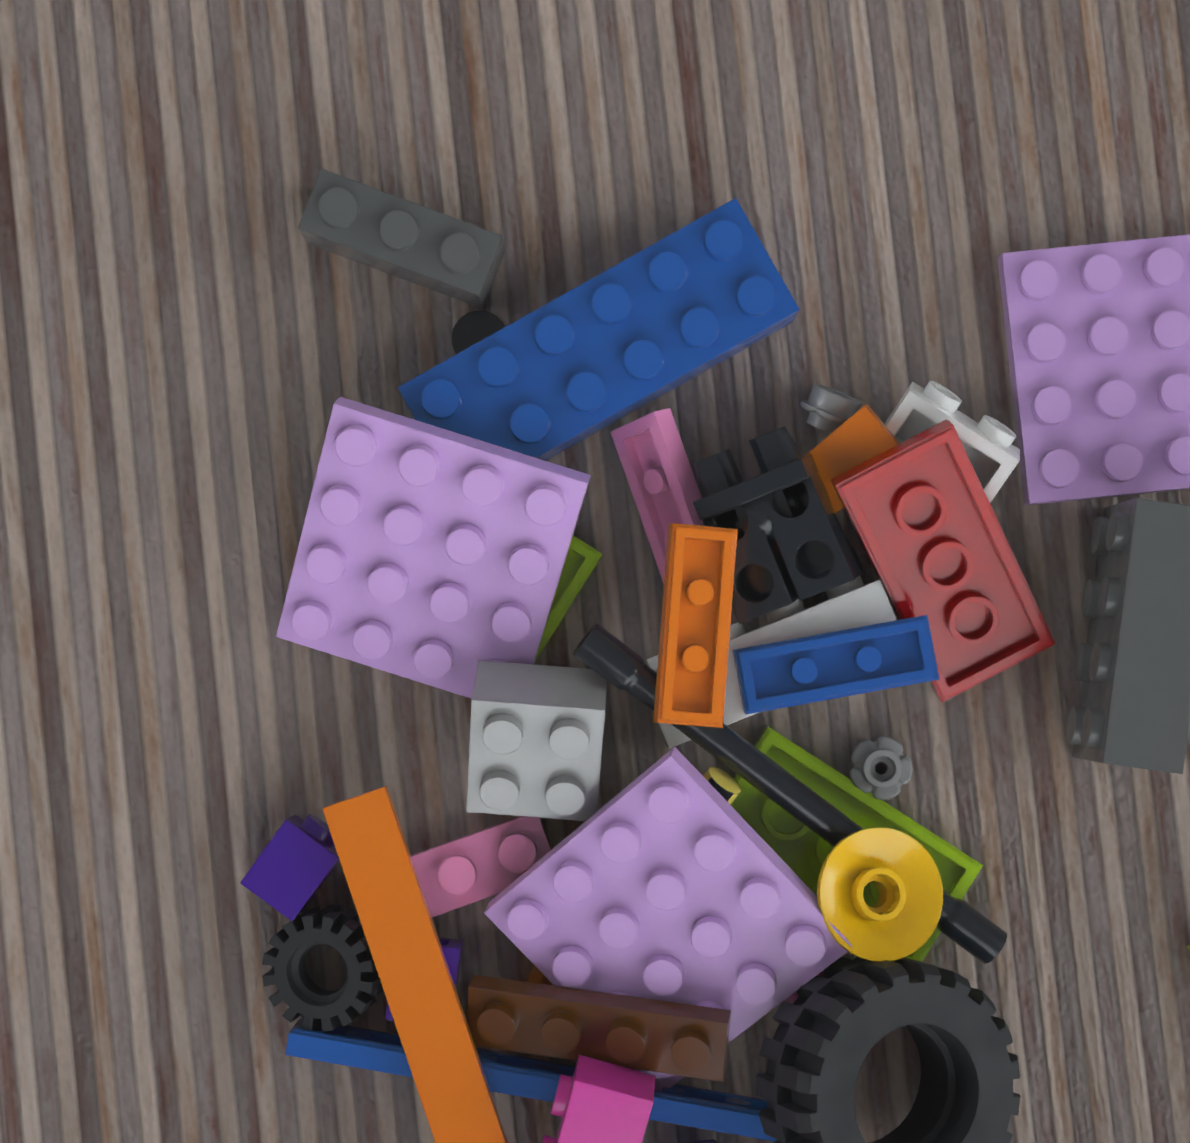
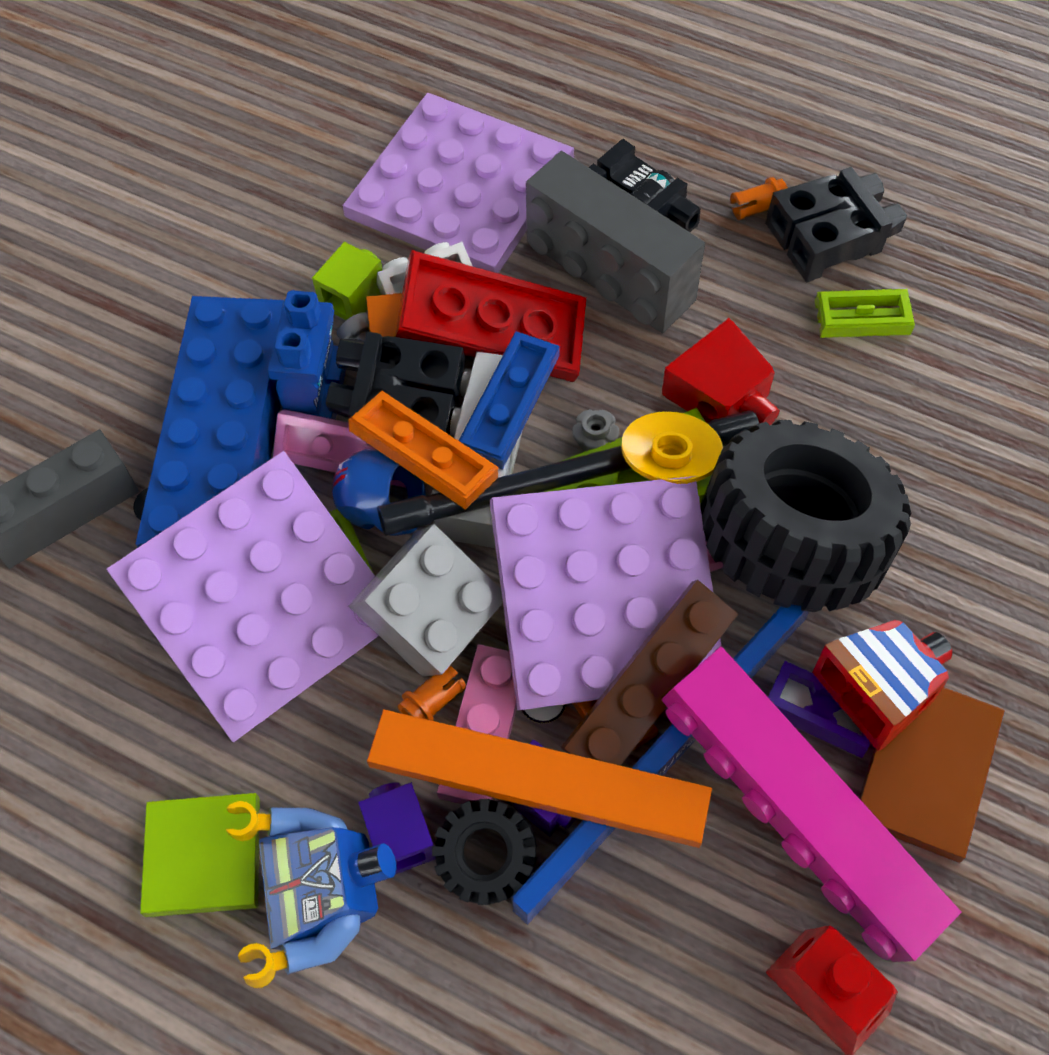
camera: 55 degrees left, 25 degrees down
(154, 687) = (194, 861): none -> lime tile
(187, 830) = (315, 886): none -> torso
(443, 802) = (432, 695): none -> orange pin
(625, 580) = (364, 484): none -> blue helmet
(740, 393) = (305, 355): none -> blue hips
(894, 349) = (348, 280): none -> lime brick
(1037, 879) = (722, 377): none -> red torso

